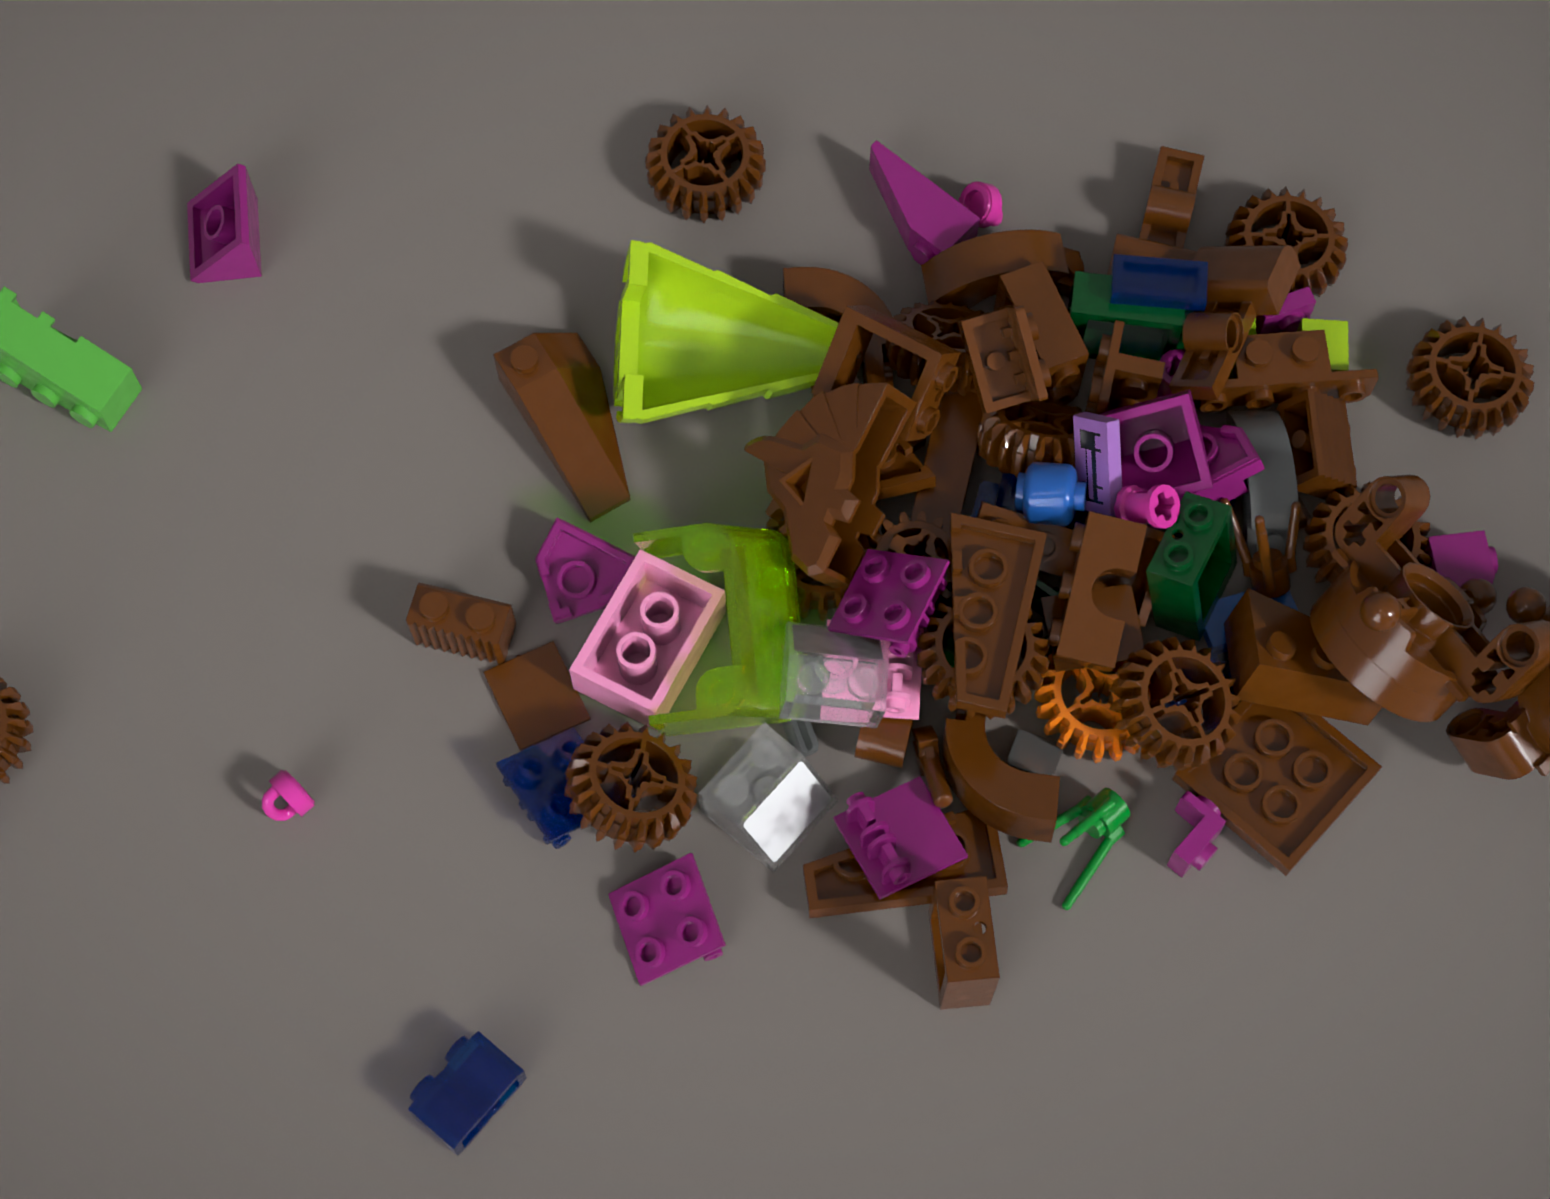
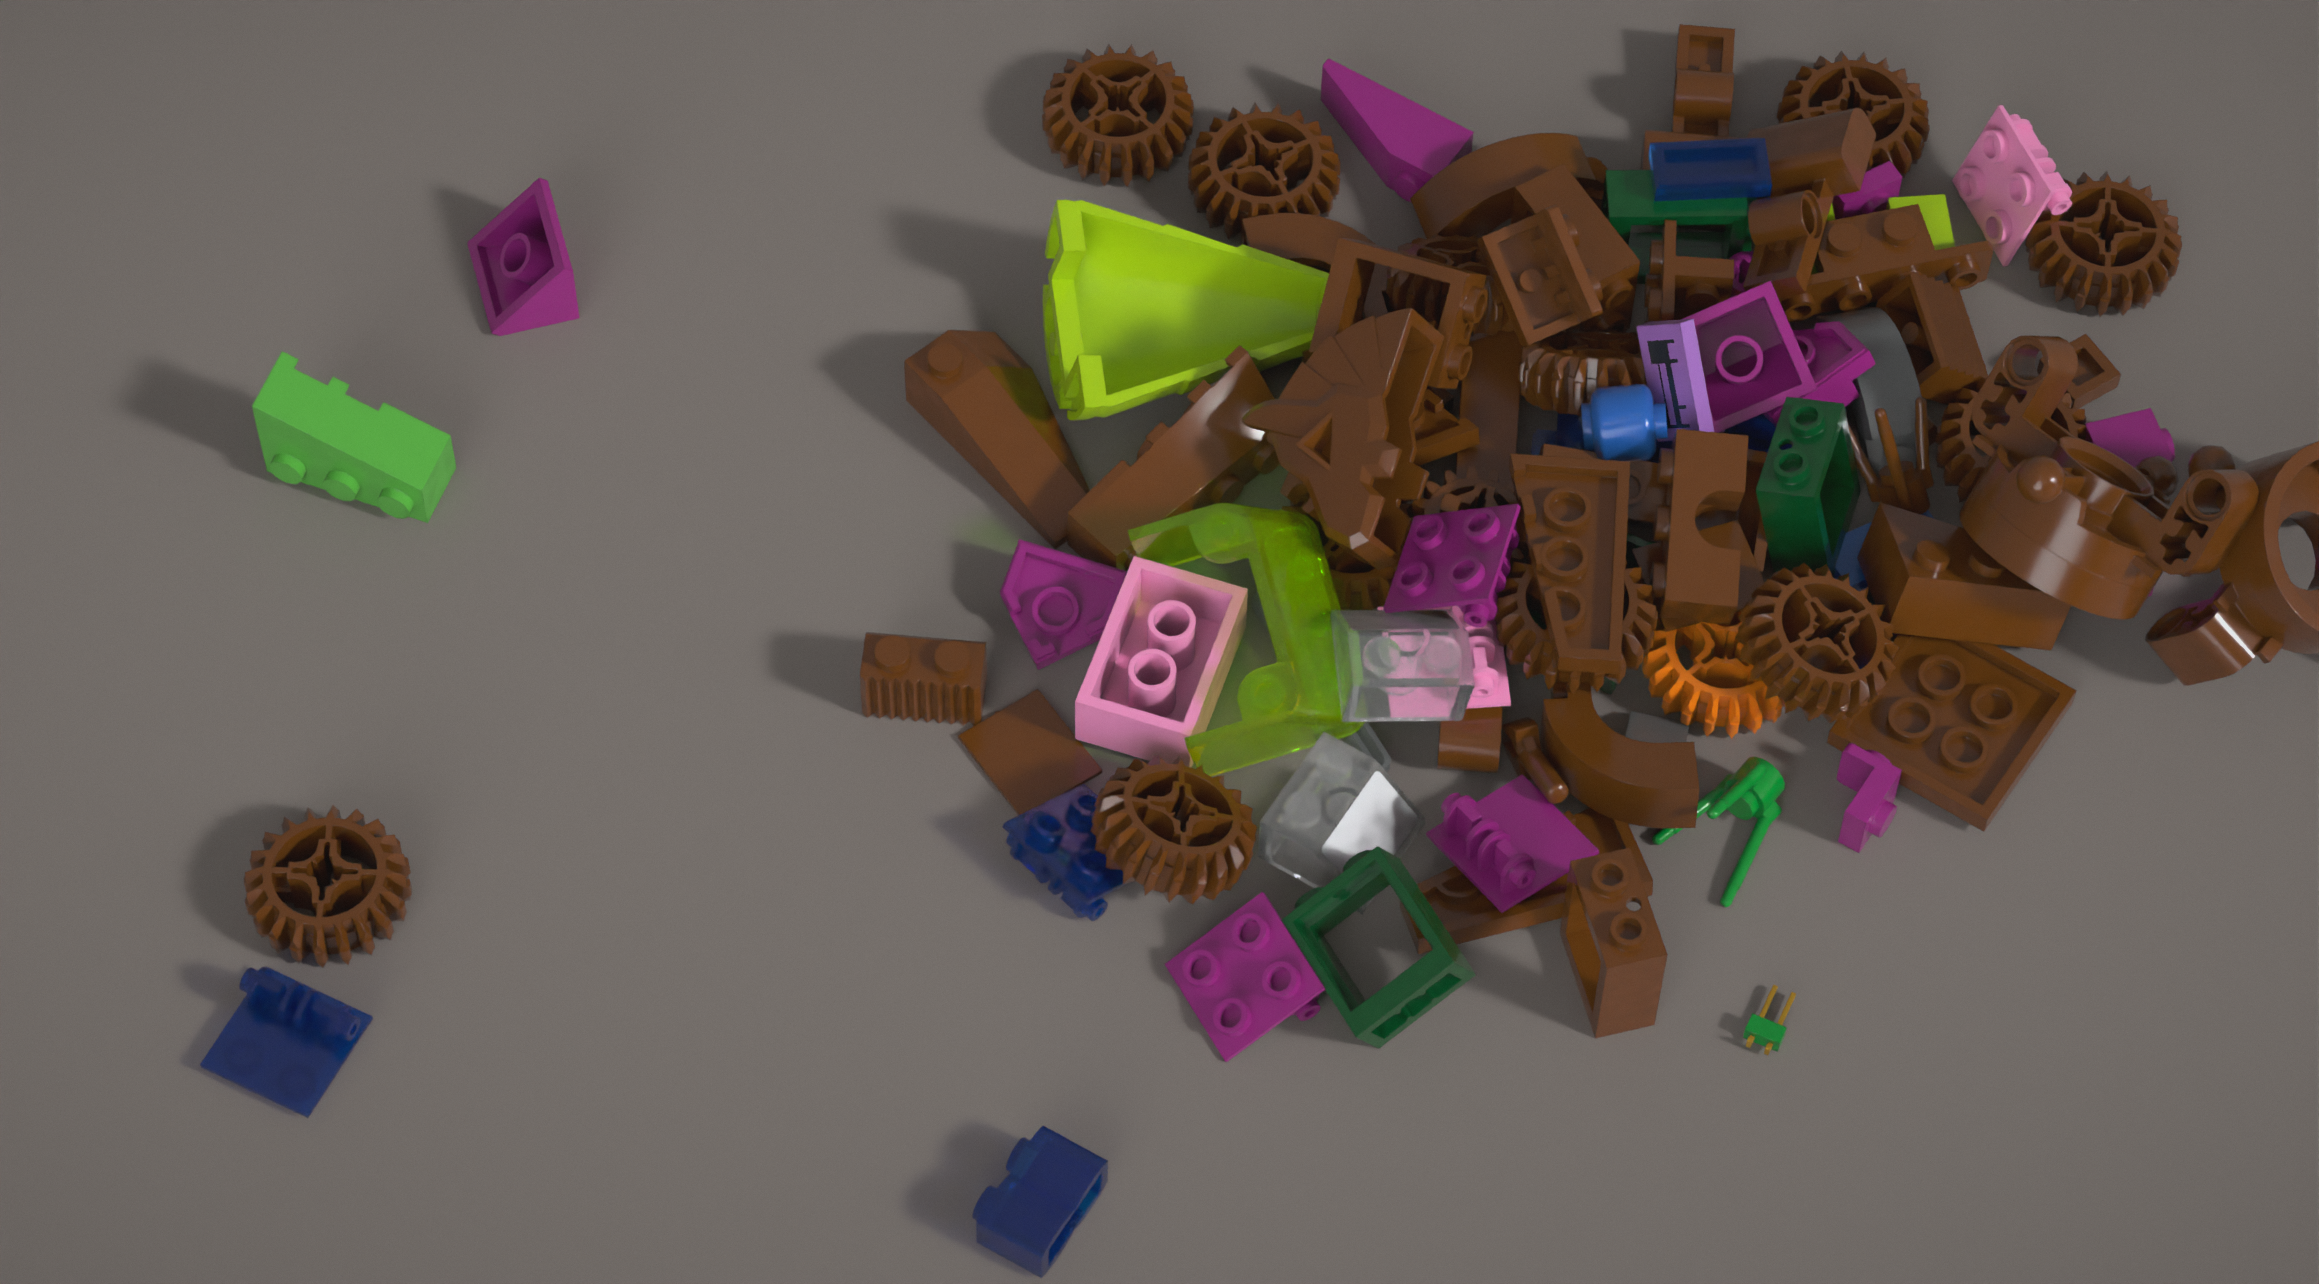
camera: 10 degrees left, 10 degrees down
(294, 794) = (753, 899): dark pink tile -> none
(692, 476) = (1178, 467): none -> reddish brown wedge
(740, 940) = (1413, 990): none -> dark green window
(828, 213) = (1274, 156): none -> reddish brown gear
(983, 201) = (1474, 113): dark pink tile -> none
(1077, 1026) = (1765, 1031): none -> green piece
(1153, 506) = (1754, 415): dark pink bush -> none
(1403, 318) = (2010, 182): none -> bright pink hinge
(1441, 482) = (2094, 373): none -> reddish brown plate

